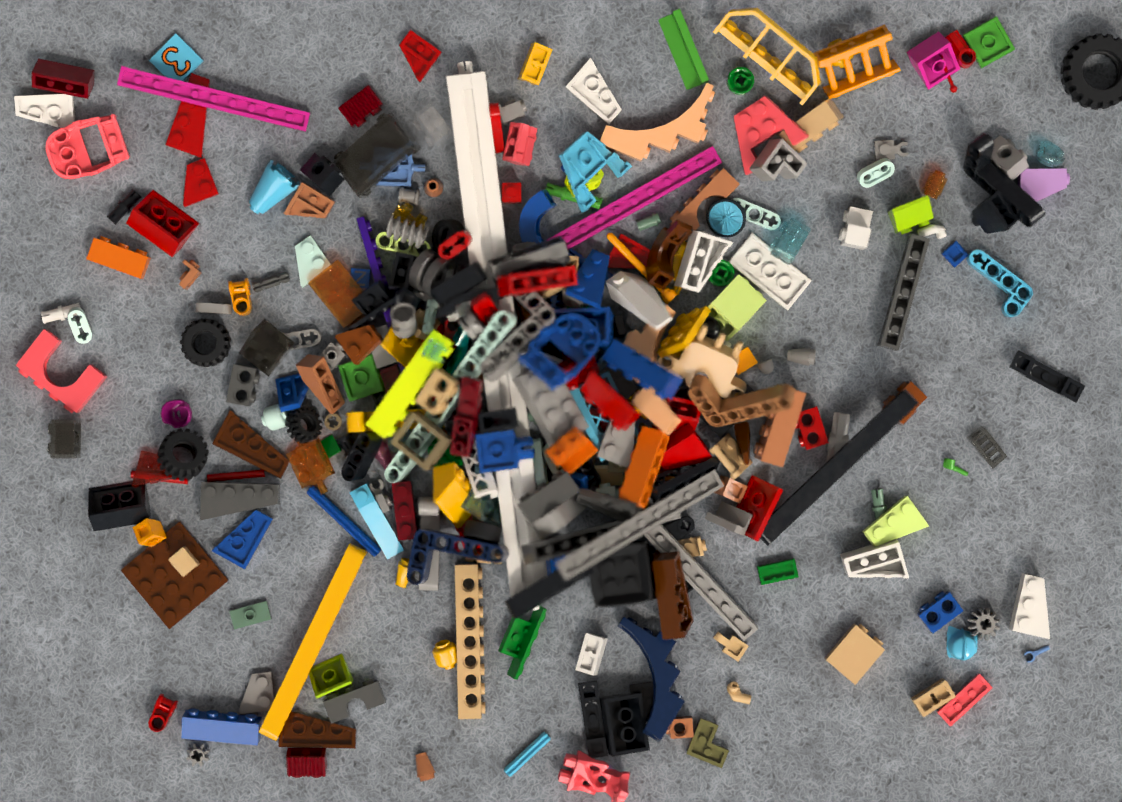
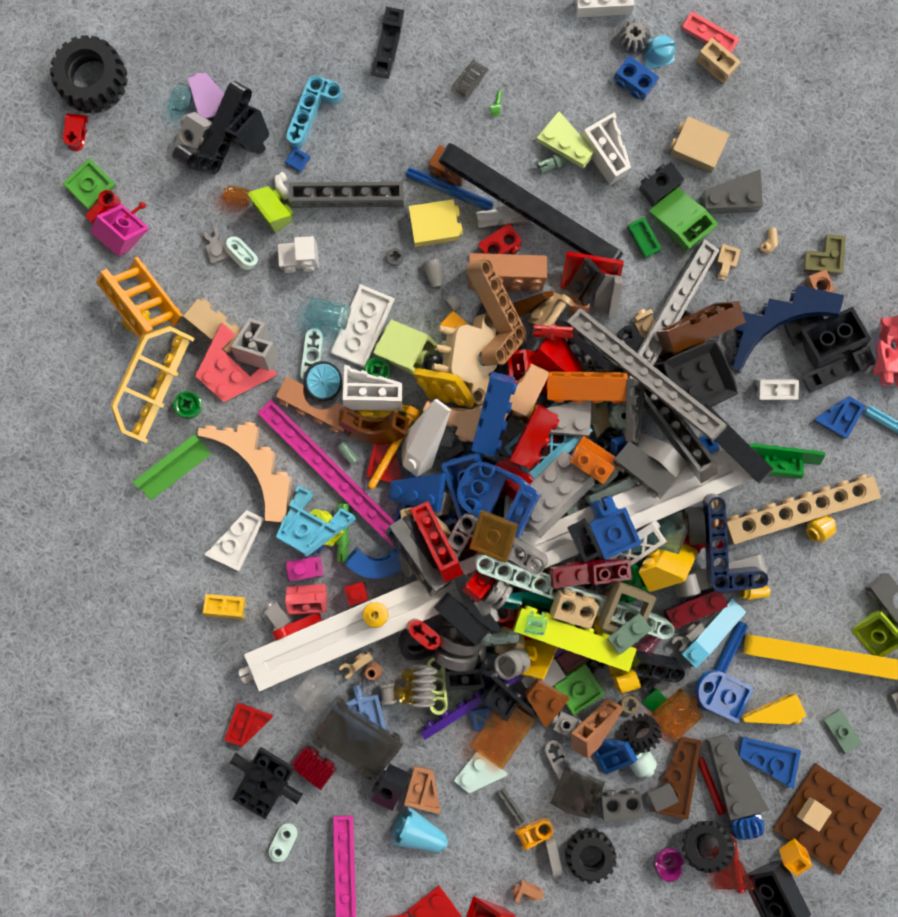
camera: 105 degrees left, 5 degrees down
(190, 496) = (747, 827): none -> blue gear
(240, 425) = (662, 796): none -> dark grey brick
(285, 562) = (781, 711): none -> yellow slope
(299, 59) = (282, 842): none -> light aqua plate
(316, 513) = (725, 694): none -> plate
(360, 57) = (264, 782): none -> black slope
(400, 435) = (629, 633): none -> sand green plate
(447, 179) = (360, 659): none -> tan plate
(483, 211) = (383, 614): none -> yellow head
(526, 335) = (494, 536): none -> pearl gold plate
(546, 708) = (841, 417): none -> blue wing
(549, 149) = (304, 568): none -> dark pink torso
(707, 451) = (553, 331): none -> red pin
(747, 498) = (586, 281): none -> black plate
(784, 614) = (683, 219): none -> bright green slope
(792, 671) = (735, 196): none -> dark grey wedge
(818, 595) = (667, 174): none -> black brick
(833, 319) = (399, 260): none -> dark grey bush
(850, 371) = (435, 223): none -> light yellow brick
(881, 396) = (449, 189): none -> blue axle
(1049, 42) = (75, 128): none -> red piece

